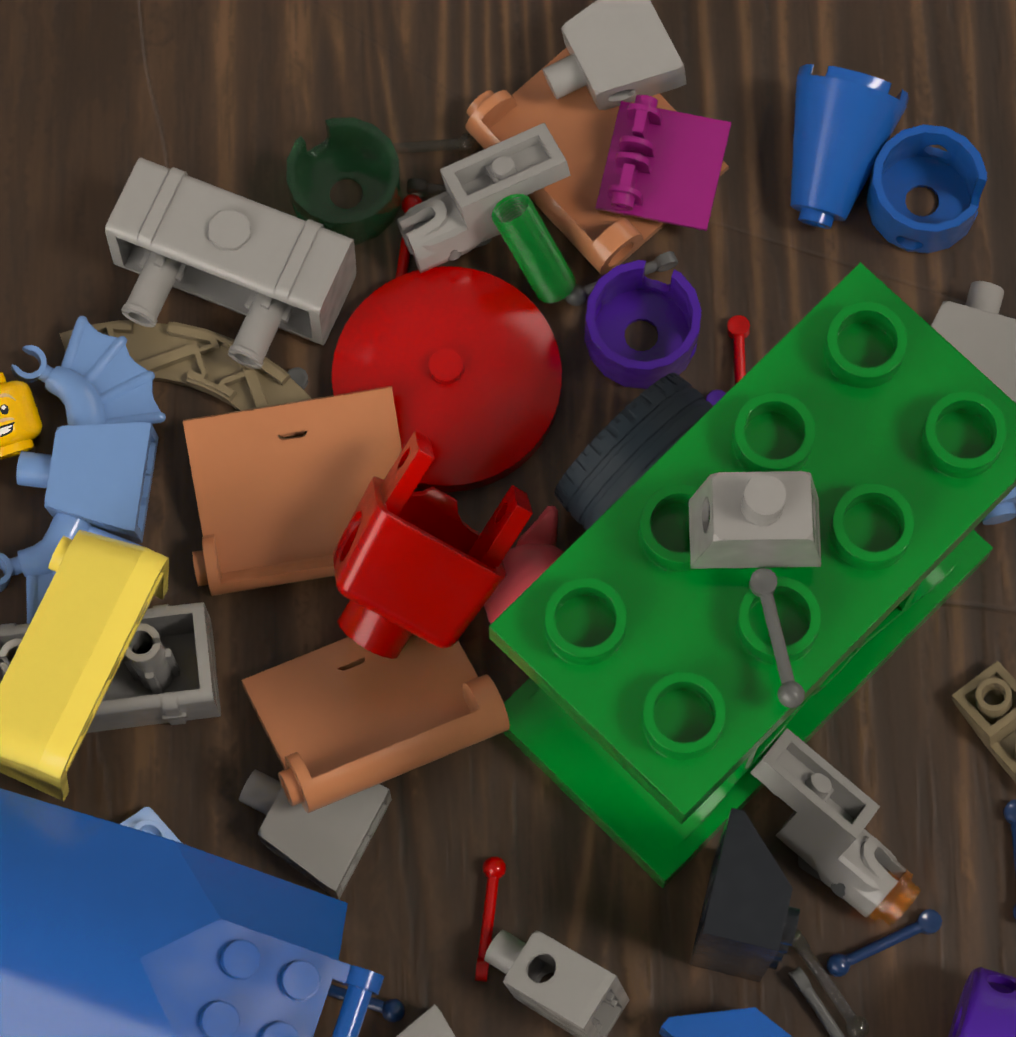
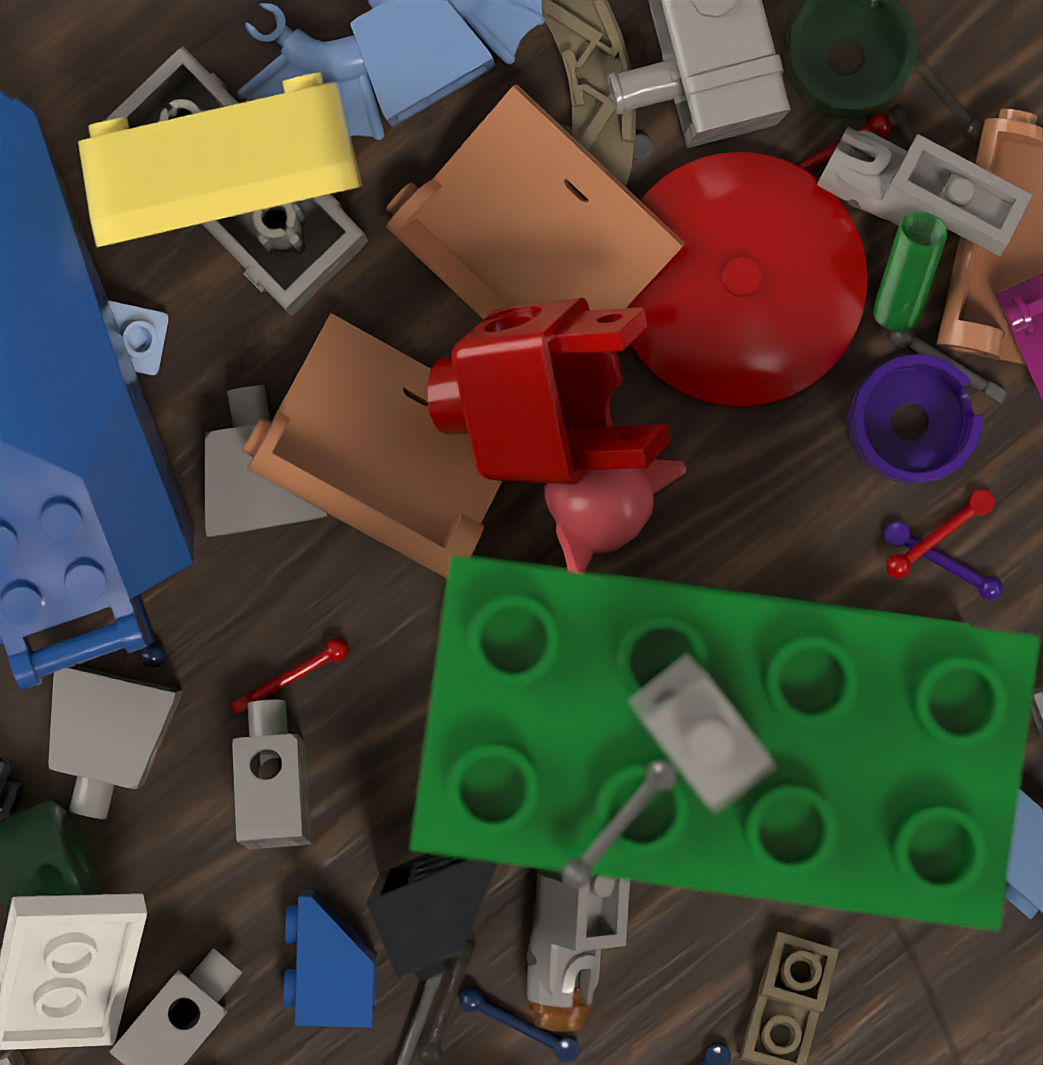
camera: 55 degrees right, 15 degrees up
(629, 447) = (777, 524): black wheel -> none

